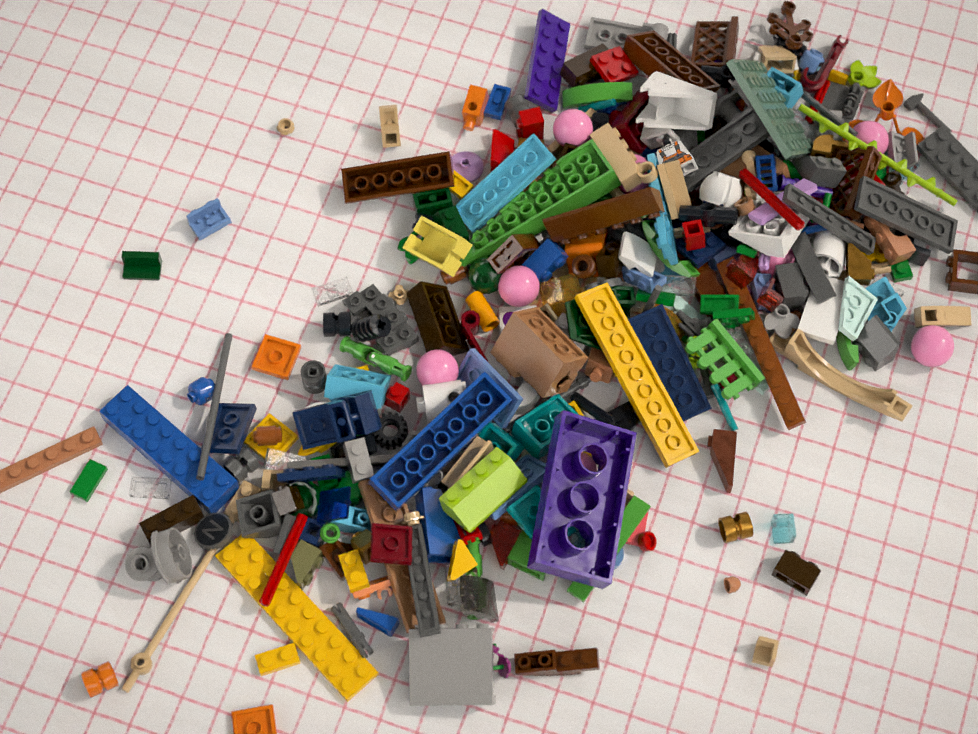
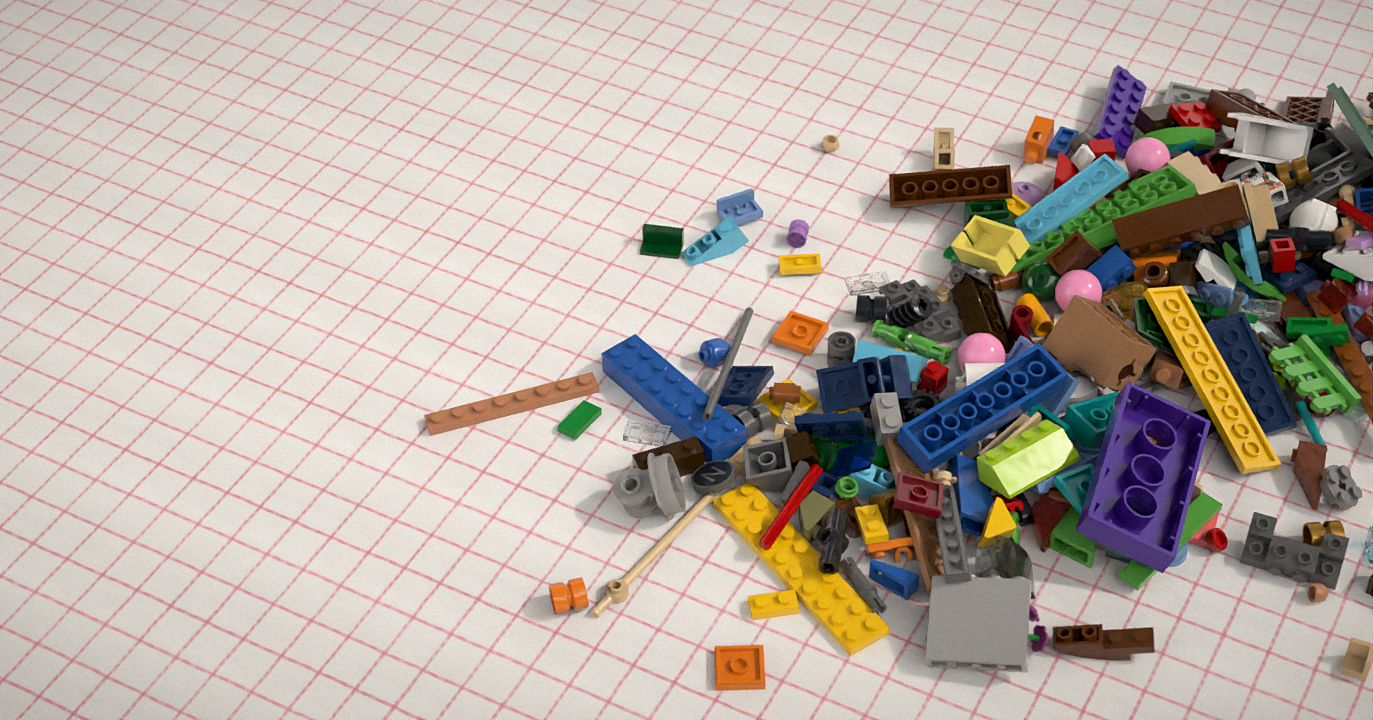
camera: 10 degrees right, 20 degrees down
(191, 261) = (718, 242): none -> medium azure slope
(264, 241) = (797, 233): none -> medium lavender wheel
(269, 276) = (800, 264): none -> yellow plate
(322, 593) = (833, 541): none -> black piece
(414, 273) = (961, 270): none -> dark grey hinge
(515, 130) = (1083, 157): none -> white tile
(706, 135) = (1300, 171): none -> pearl gold wheel
(711, 554) = (1291, 557): none -> dark grey bracket
(748, 464) = (1339, 487): none -> flat silver plate

